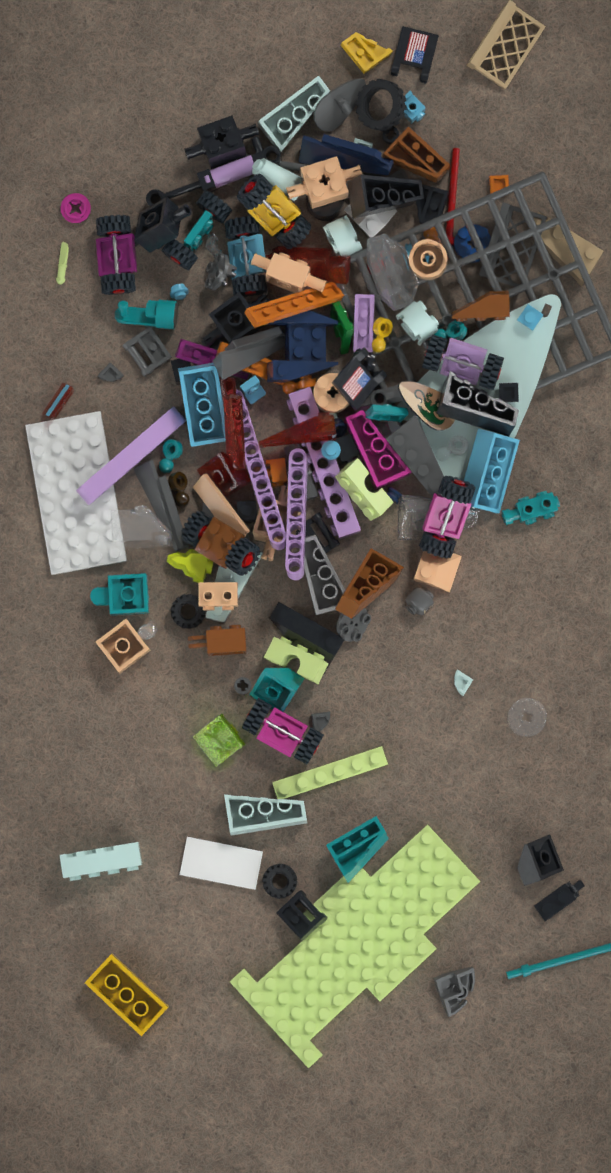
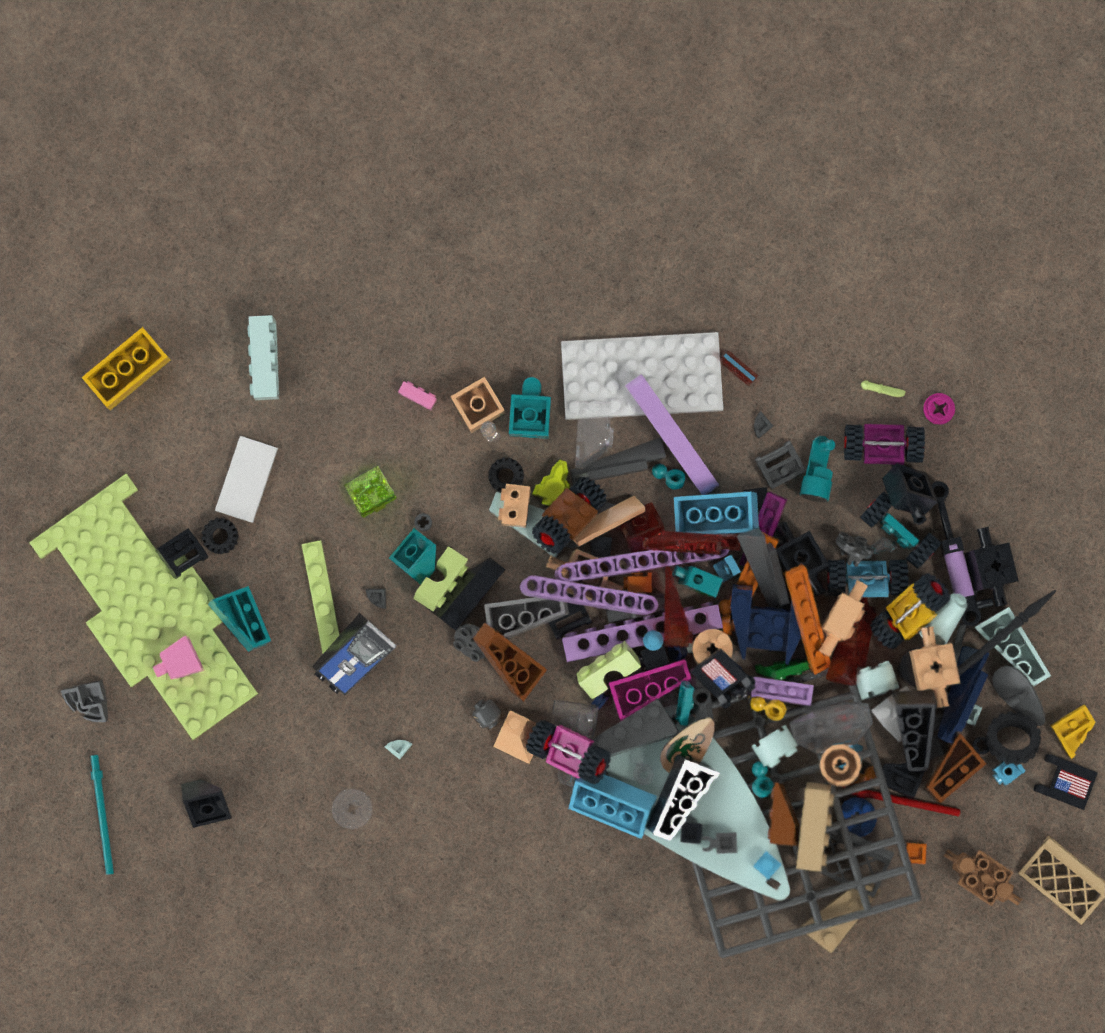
camera: 105 degrees right, 0 degrees up
(119, 706) = (417, 395): none -> bright pink piece
(178, 483) = (639, 481): dark brown plate -> none
(179, 291) = (839, 504): medium azure plate -> none
(222, 641) = (469, 506): dark orange brick -> none
(260, 814) = (290, 518): light aqua wedge -> none
(267, 106) = (1018, 621): none -> black piece
(268, 414) = (697, 580): none -> teal torso
(282, 731) = (370, 556): plate -> none
(380, 735) = (353, 655): none -> slope
(406, 903) = (179, 660): none -> bright pink torso
(464, 361) = (728, 789): plate -> none
(488, 277) = (813, 826): none -> tan wedge
(513, 119) = (983, 877): none -> medium nougat piece
(514, 359) = (723, 843): none -> dark grey plate
(537, 507) = (571, 847): teal brick -> none
(558, 899) = (163, 818): black hinge -> none

